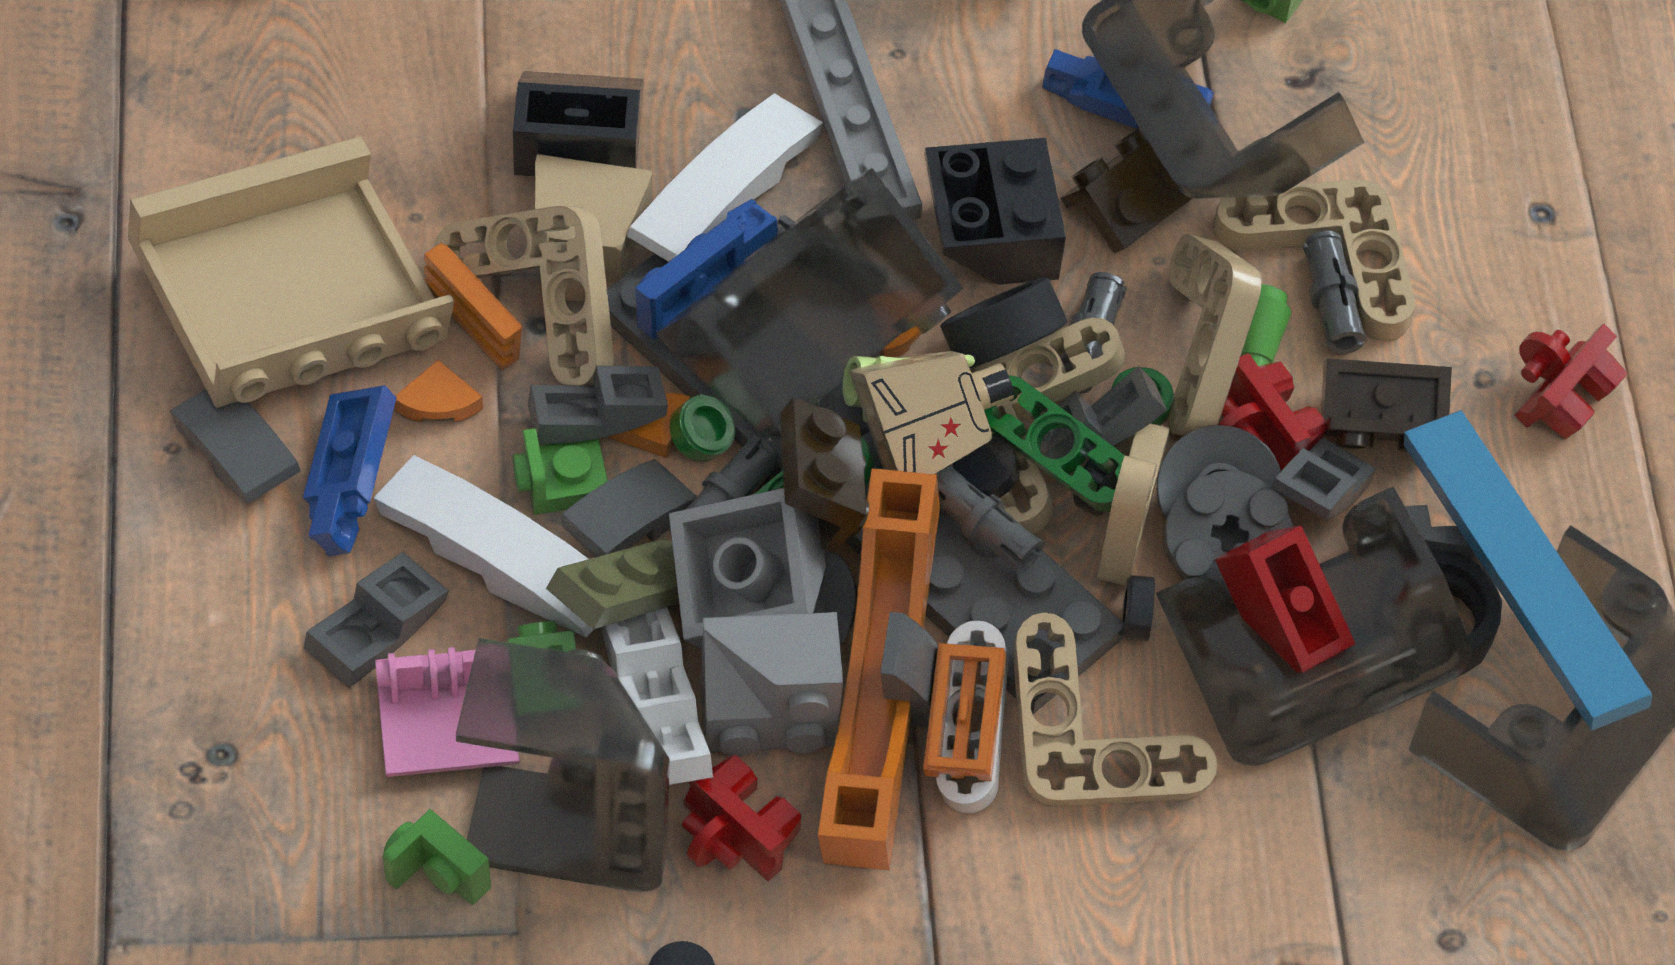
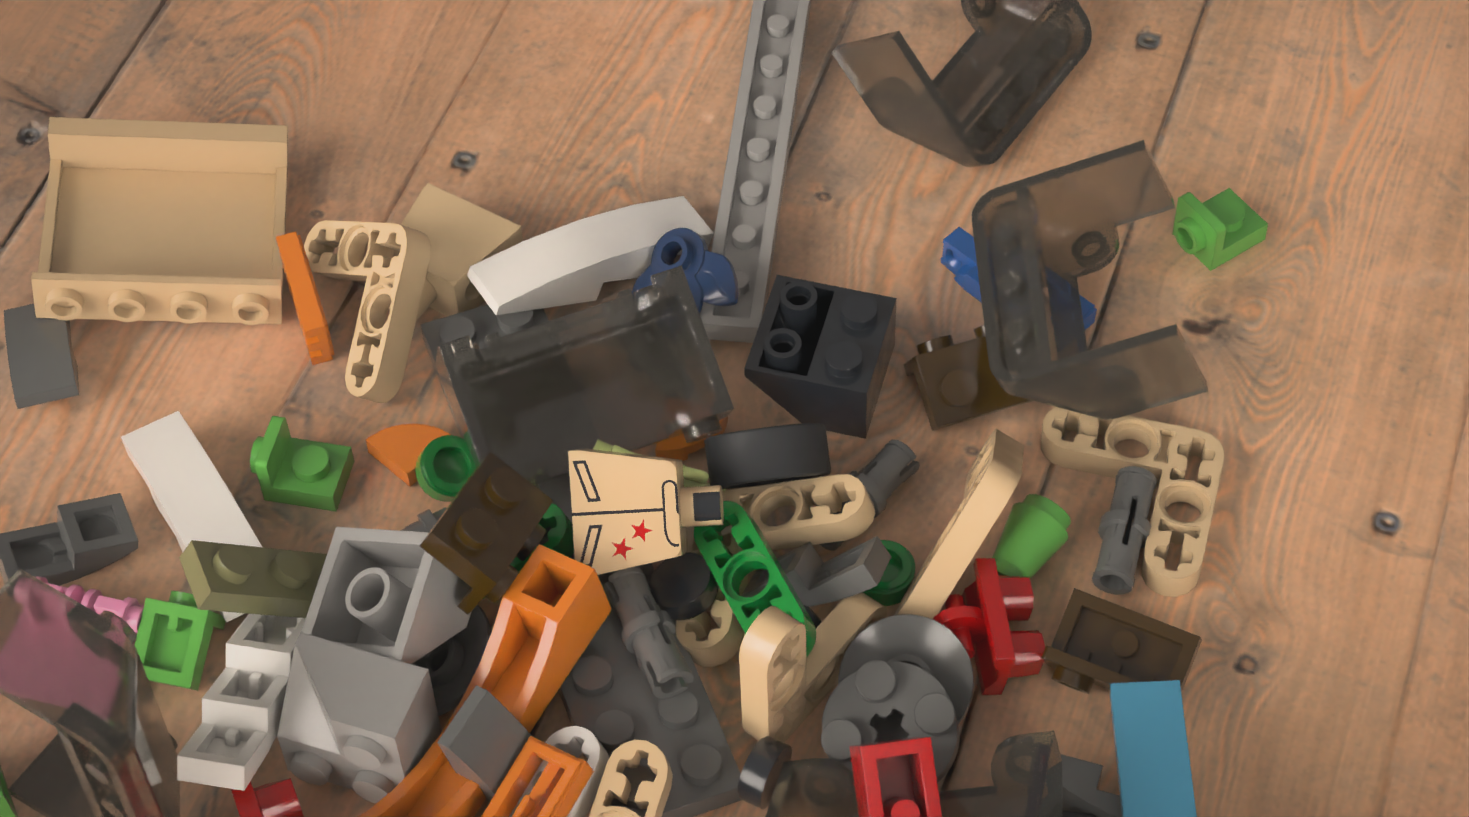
camera: 30 degrees right, 5 degrees down
(347, 465) = (114, 404): blue hinge -> none
(438, 395) = (236, 368): orange tile -> none
(576, 119) = (488, 165): black slope -> none
(615, 404) = (379, 420): dark grey slope -> none
(627, 509) = (310, 517): dark grey slope -> none
(702, 265) = (516, 310): blue hinge -> none
(841, 163) = (707, 272): none -> dark blue plate
(1324, 479) = (1013, 705): dark grey slope -> none
(1561, 369) = (1304, 706): red hips -> none

